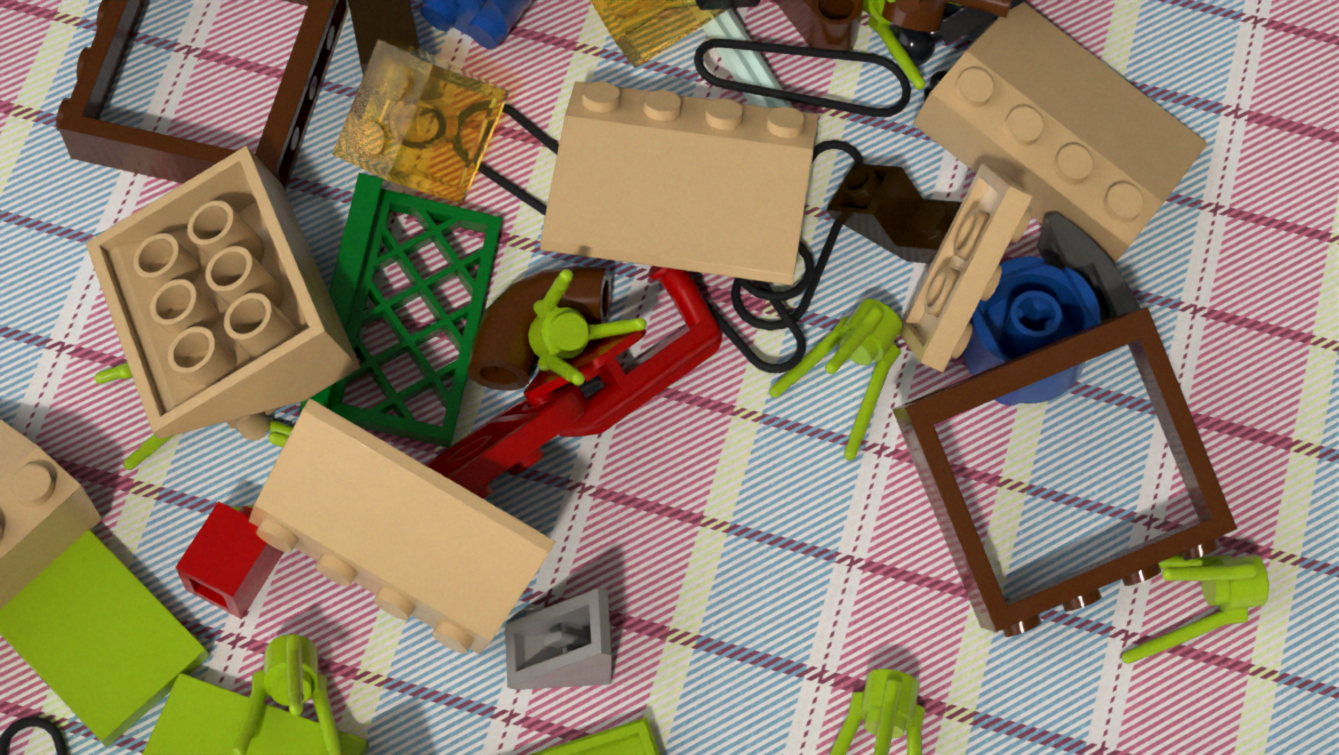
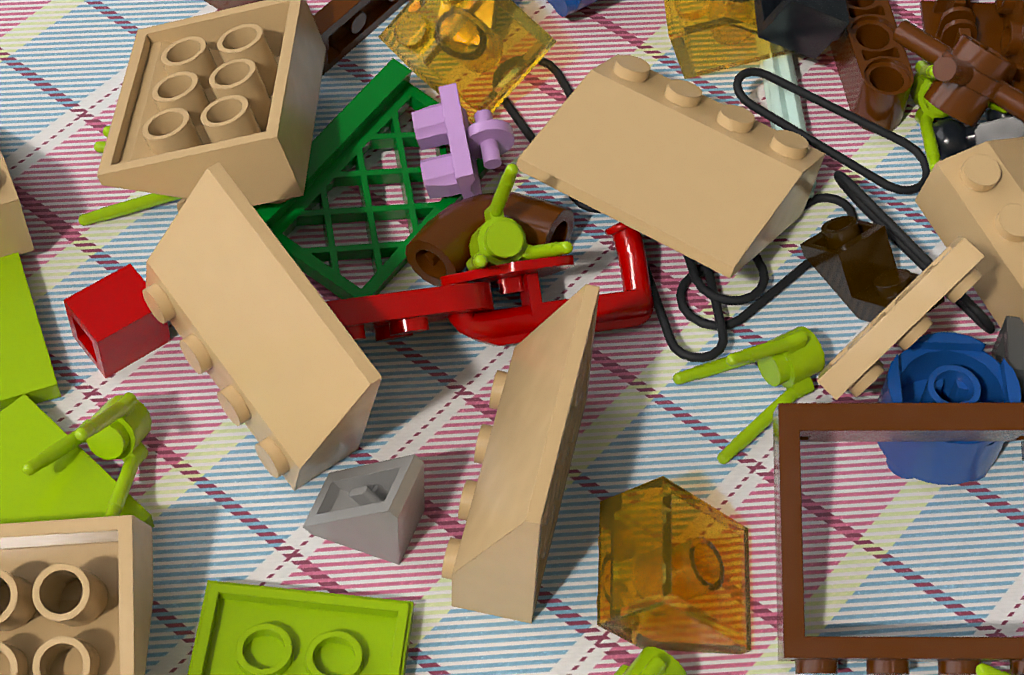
camera: 25 degrees right, 10 degrees down
(445, 223) = (449, 124): none -> lavender hips
(693, 545) = (524, 466): none -> tan slope
(860, 589) = (673, 572): none -> clear yellow slope
(904, 162) = (906, 244): none -> black piece

